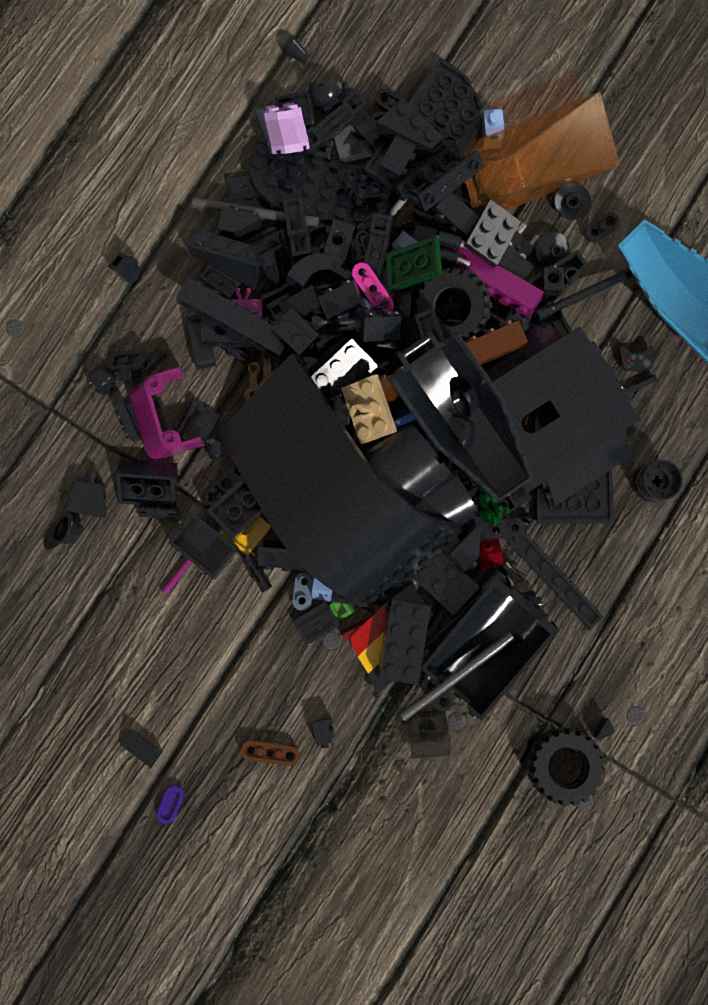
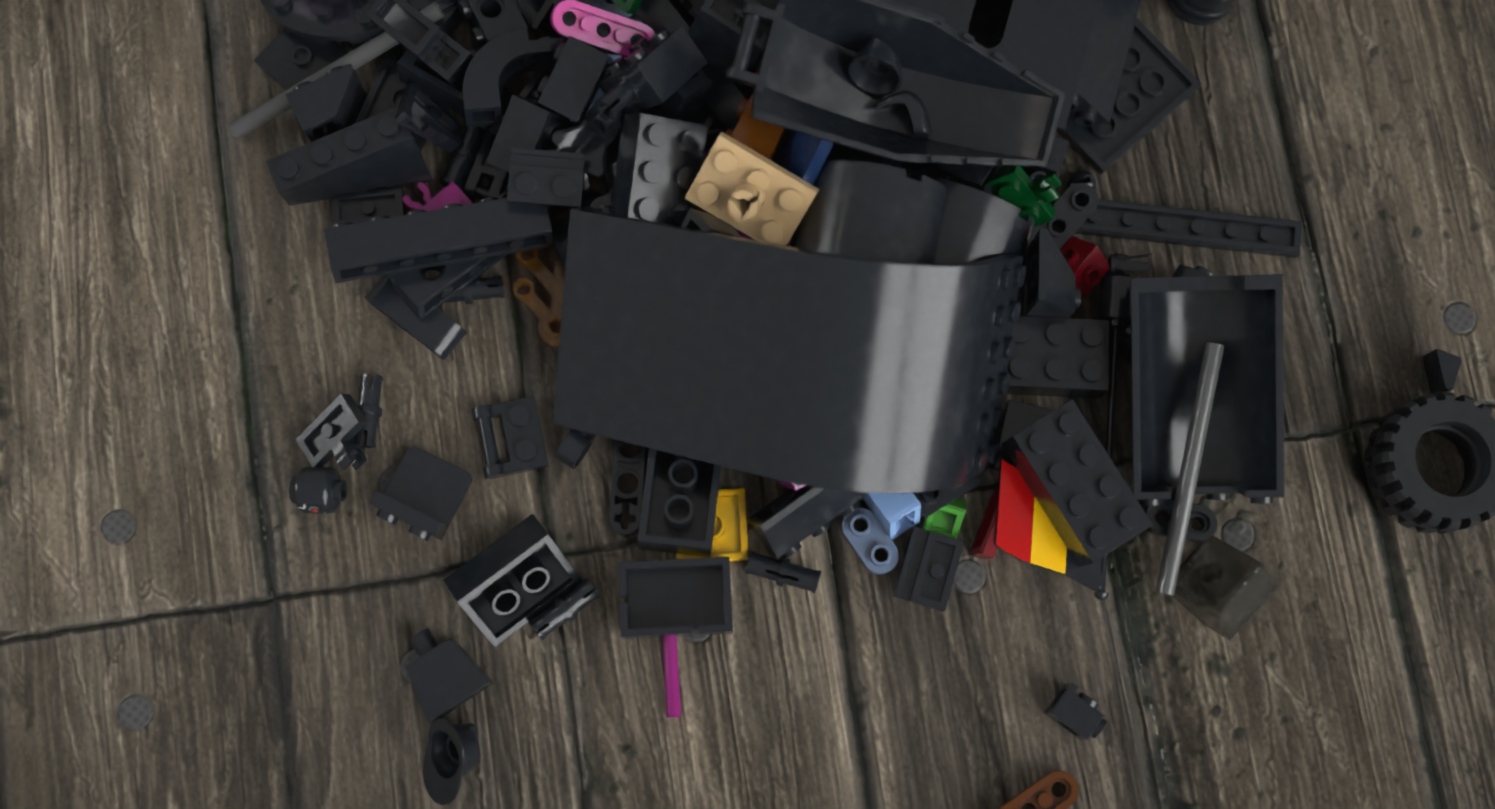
camera: 40 degrees left, 5 degrees down
(125, 267) = (213, 301): black brick -> none
(158, 443) = (473, 507): magenta windscreen -> none

